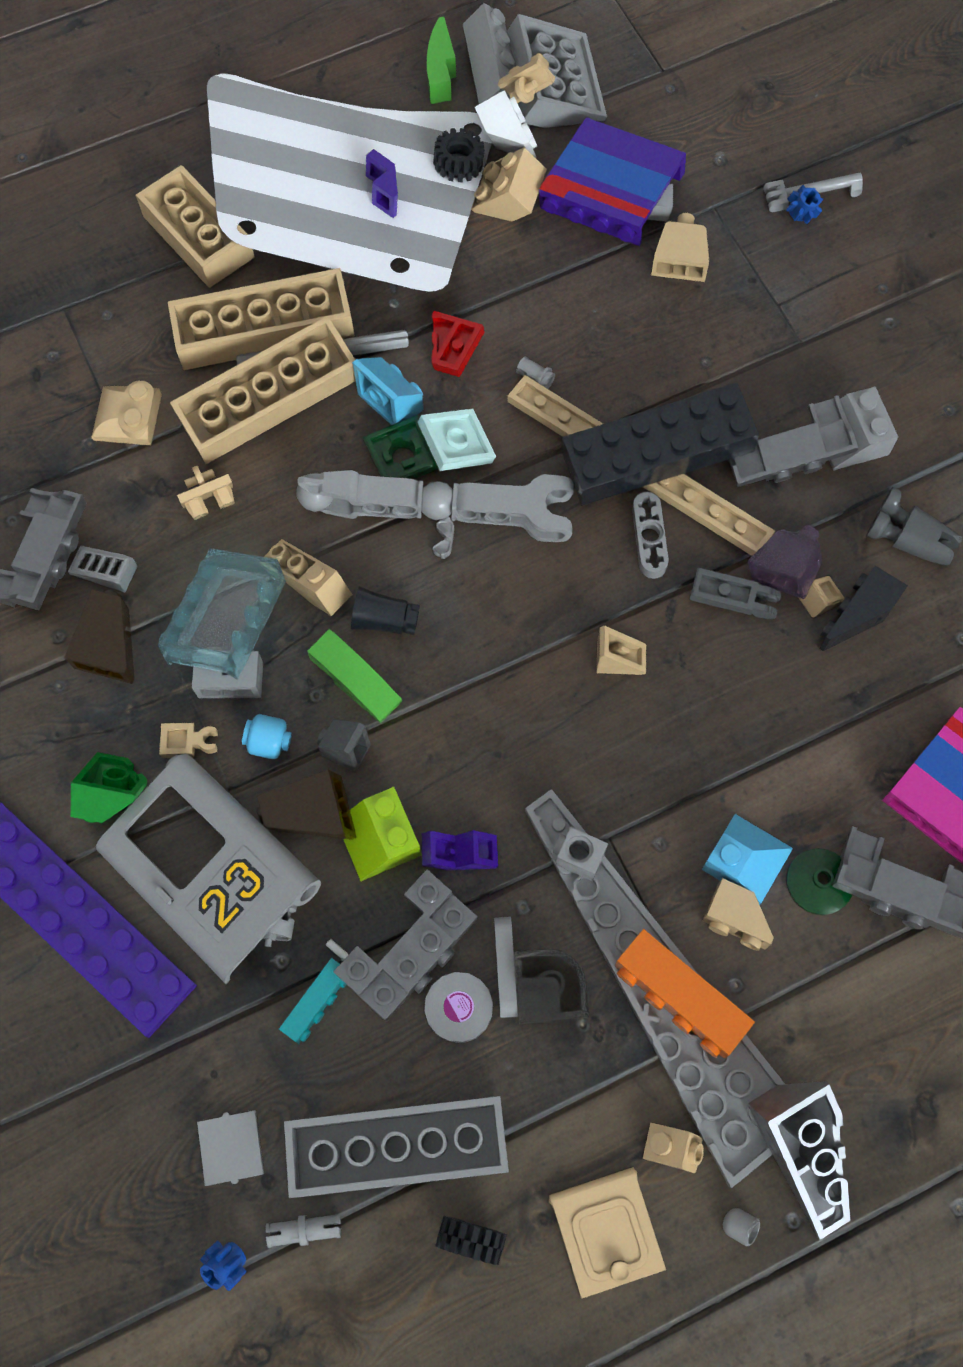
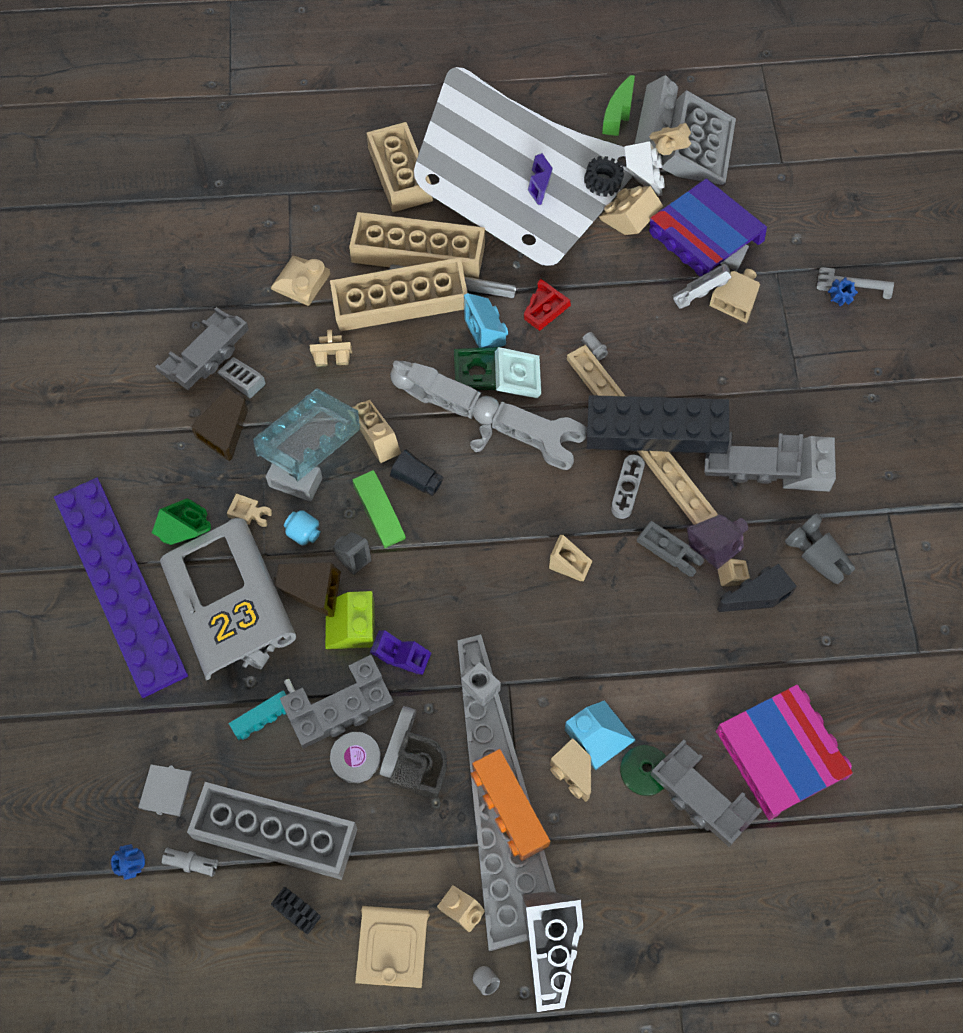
camera: 20 degrees right, 5 degrees down
(637, 252) = (702, 285): none -> light grey hinge

